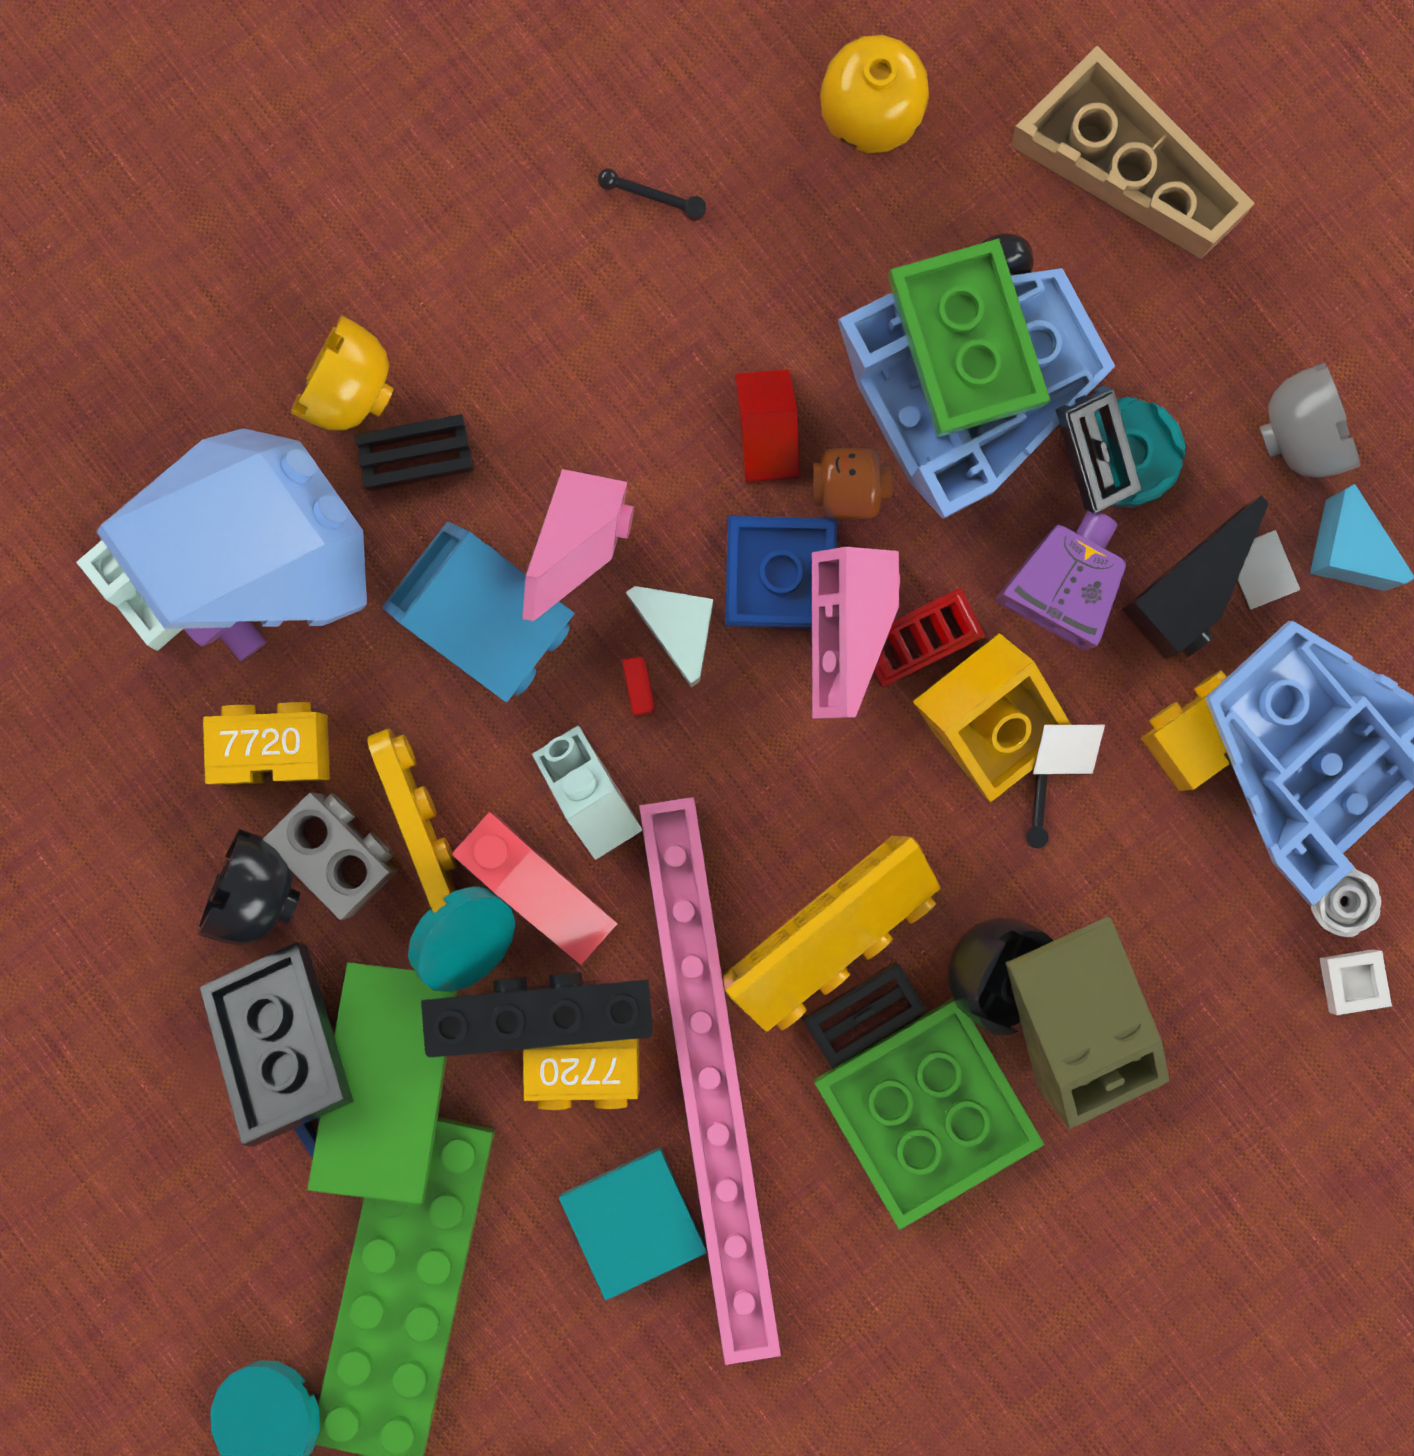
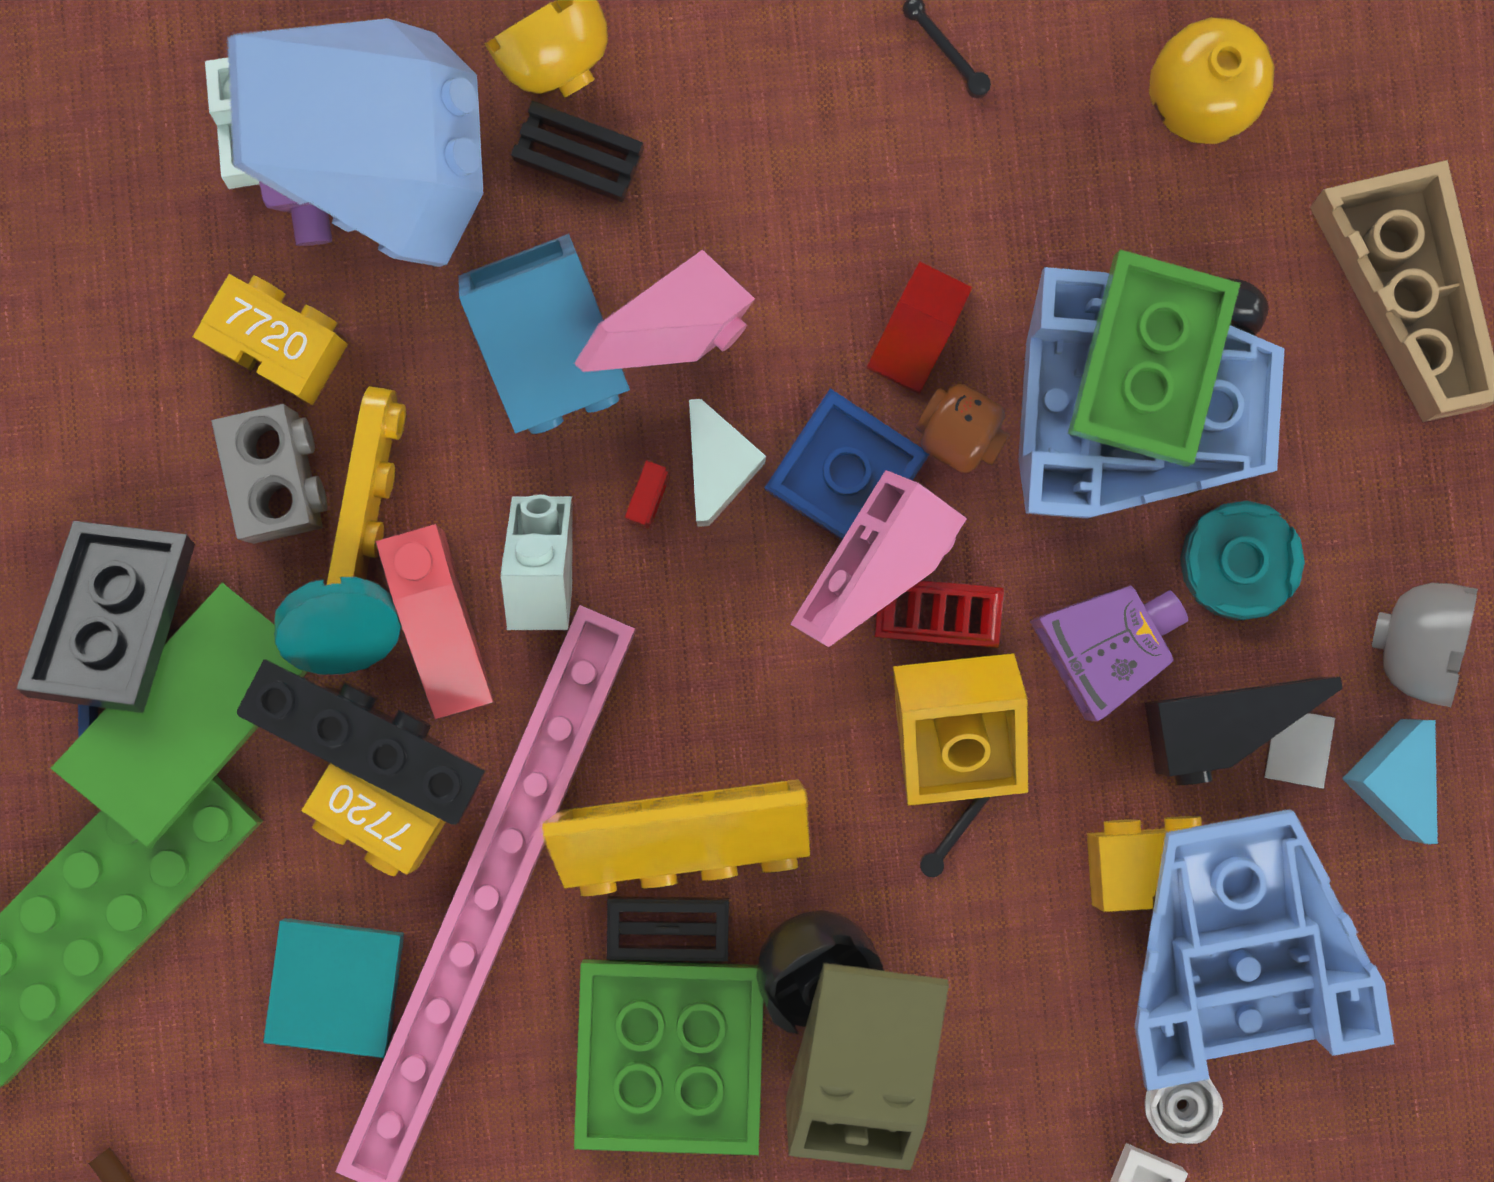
camera: 30 degrees right, 0 degrees up
(249, 893) = (170, 463): black cylinder -> none
(1068, 418) = (1199, 500): black tile -> none
(1068, 749) = (1011, 801): white sticker -> none

